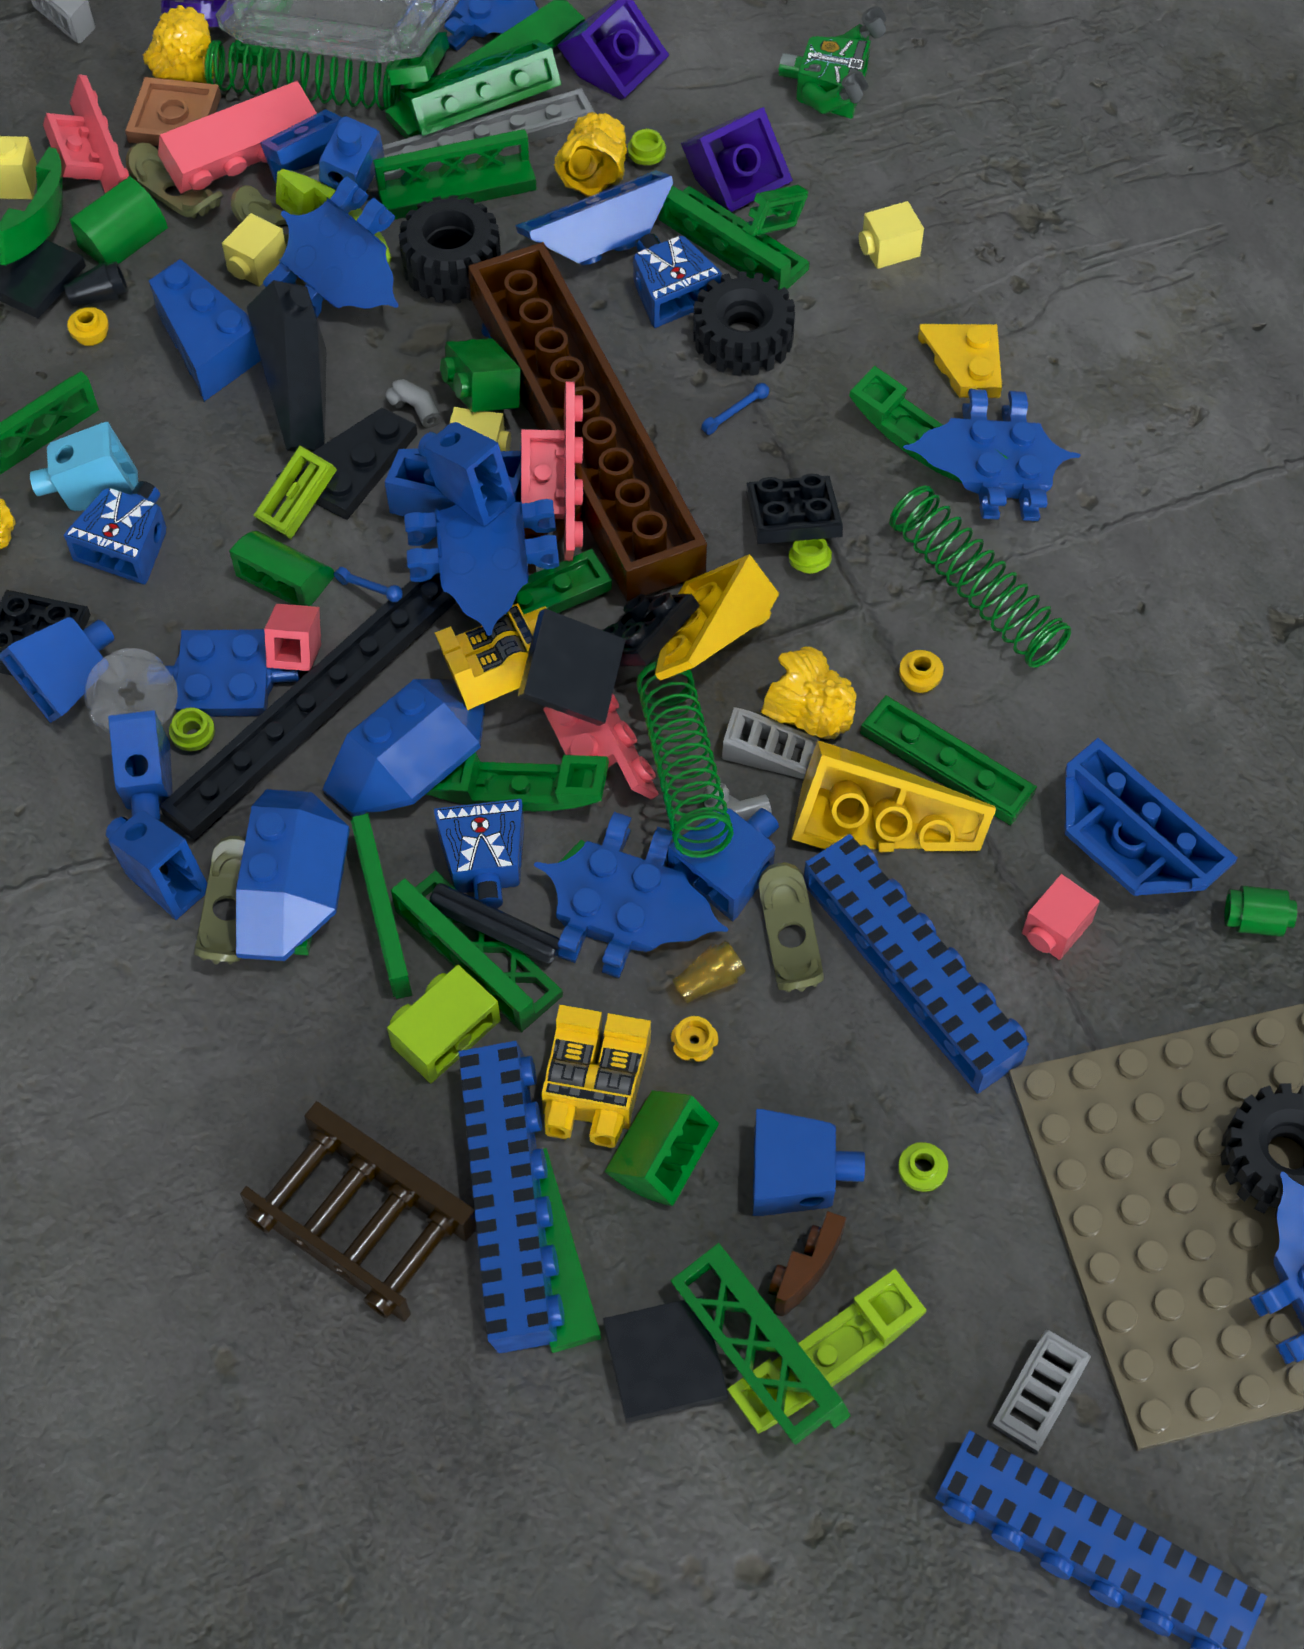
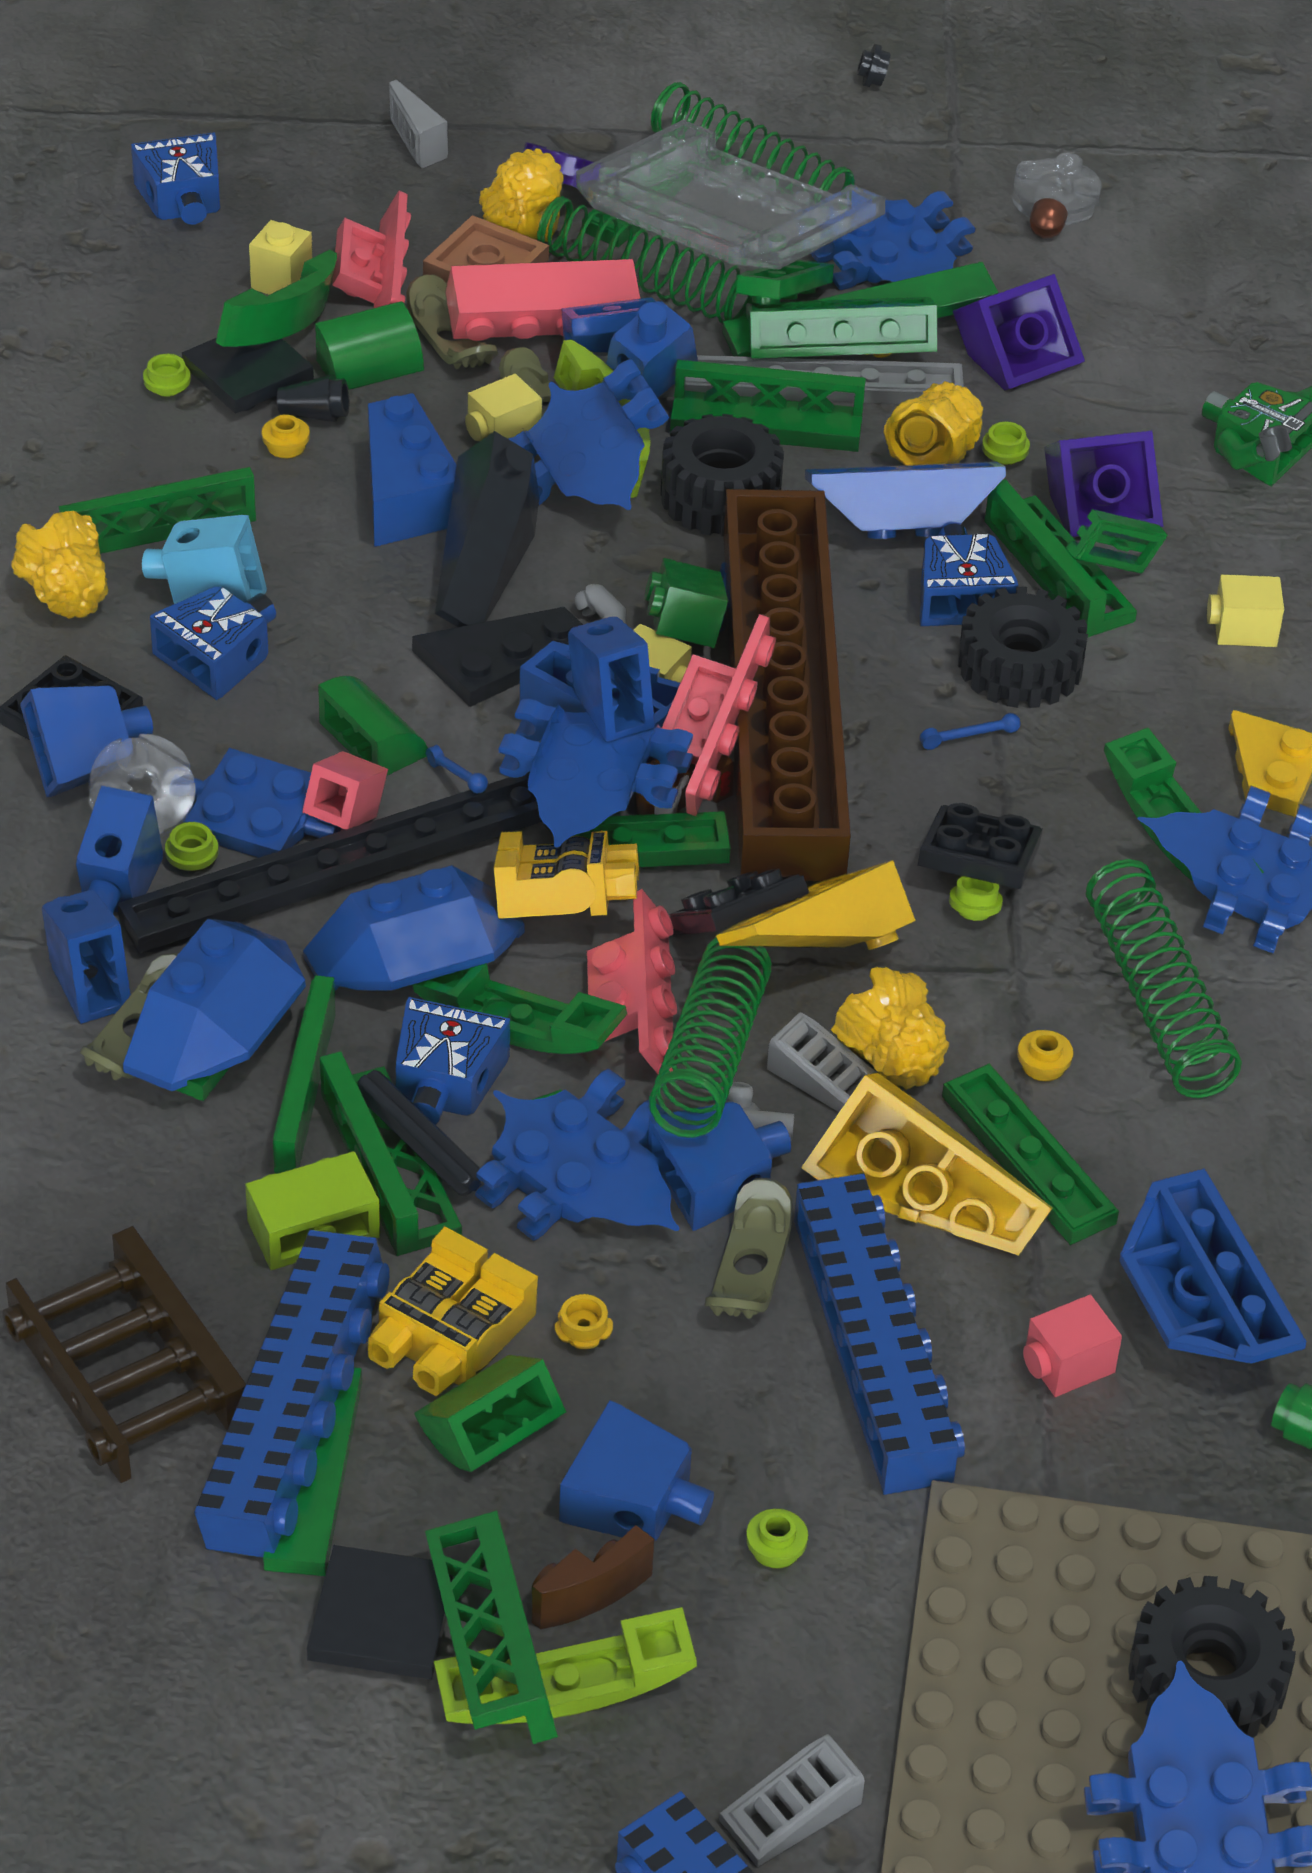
camera: 20 degrees right, 15 degrees down
(301, 494) = (427, 661): lime tile -> none
(571, 667) = (627, 901): black tile -> none
(710, 972) = (635, 1264): clear yellow cone -> none

